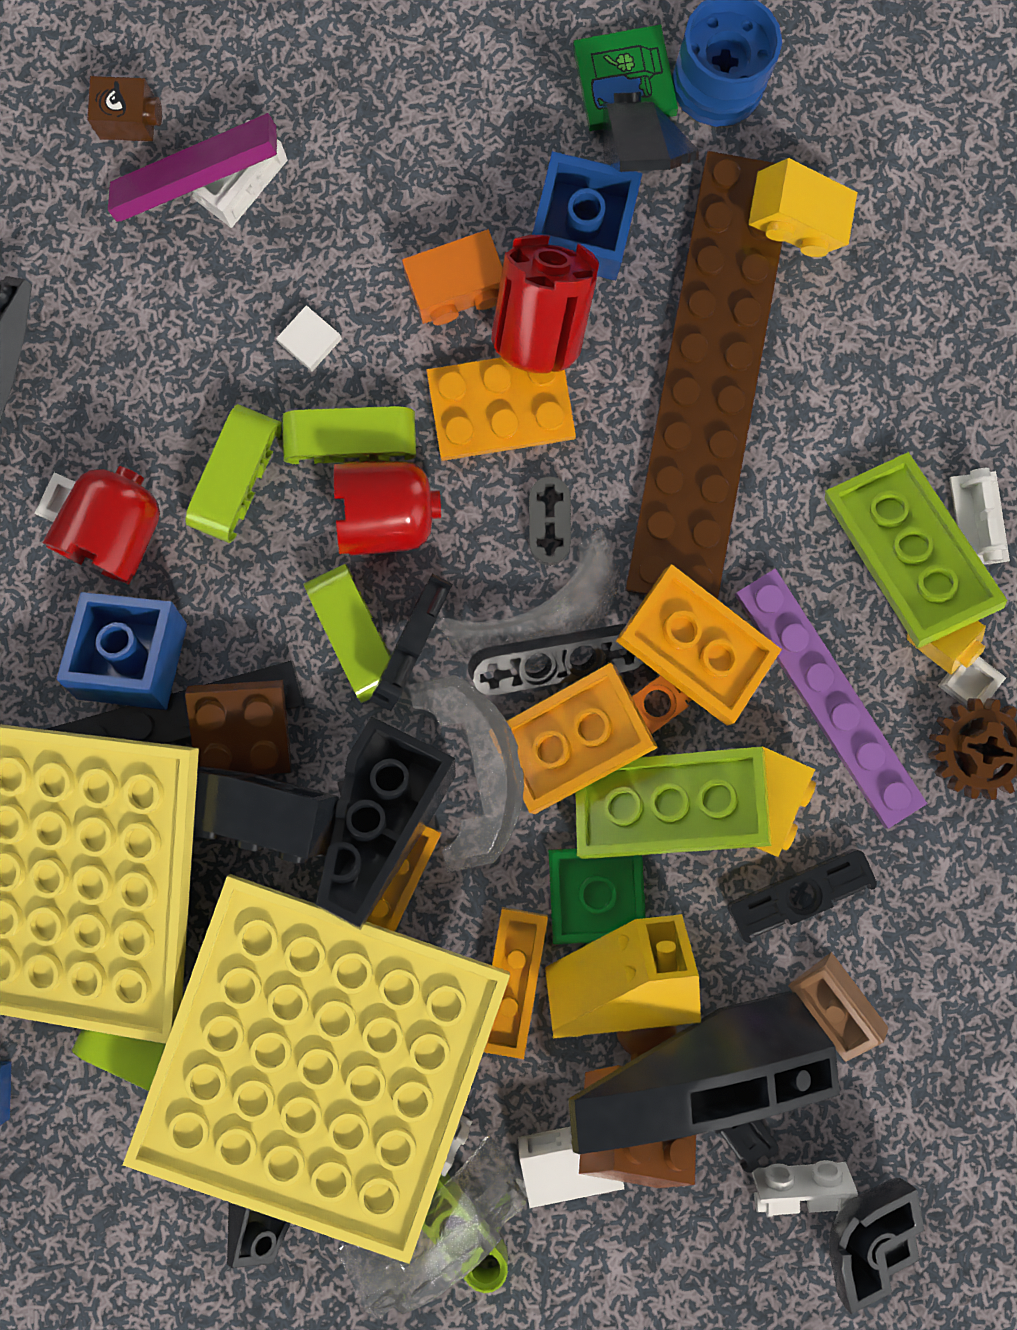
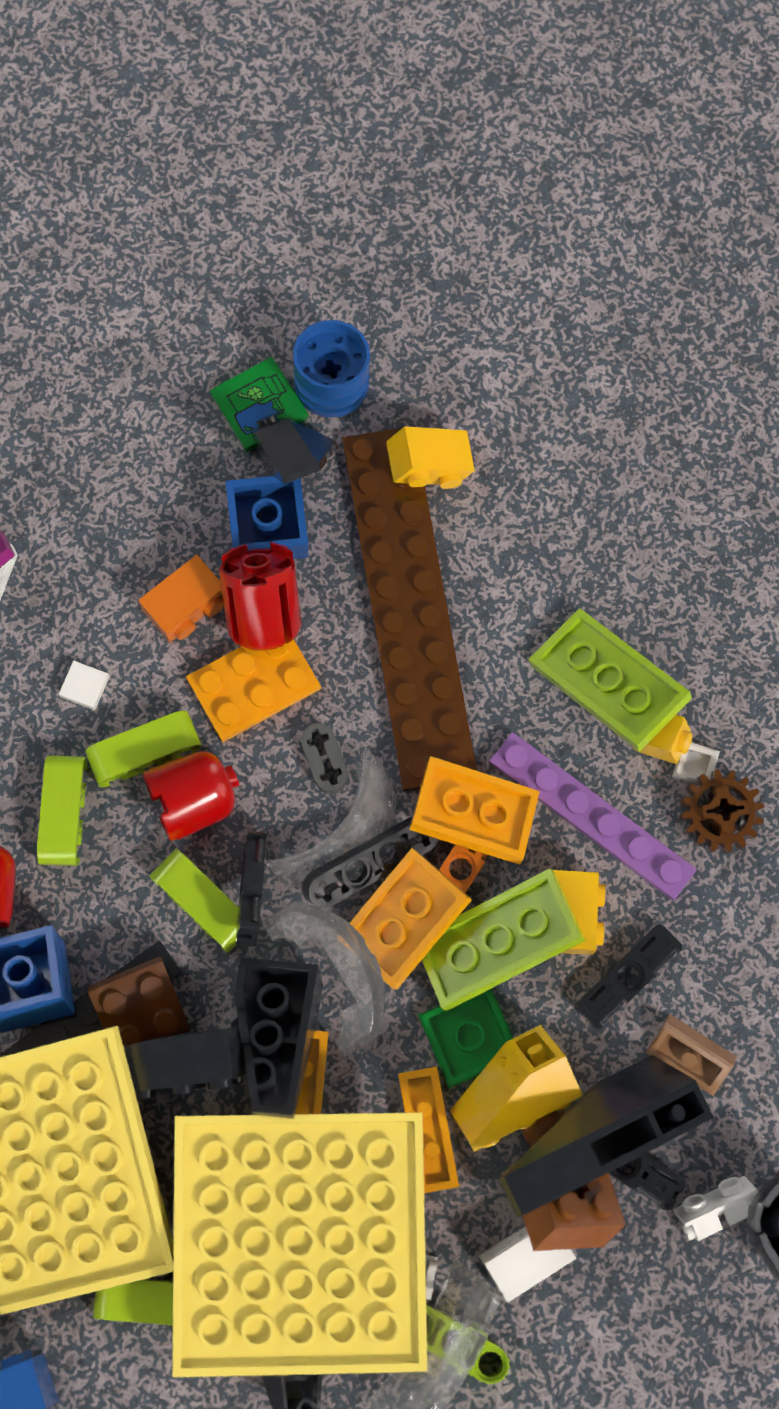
camera: 25 degrees left, 10 degrees down
(980, 514) = (653, 636): white hinge -> none

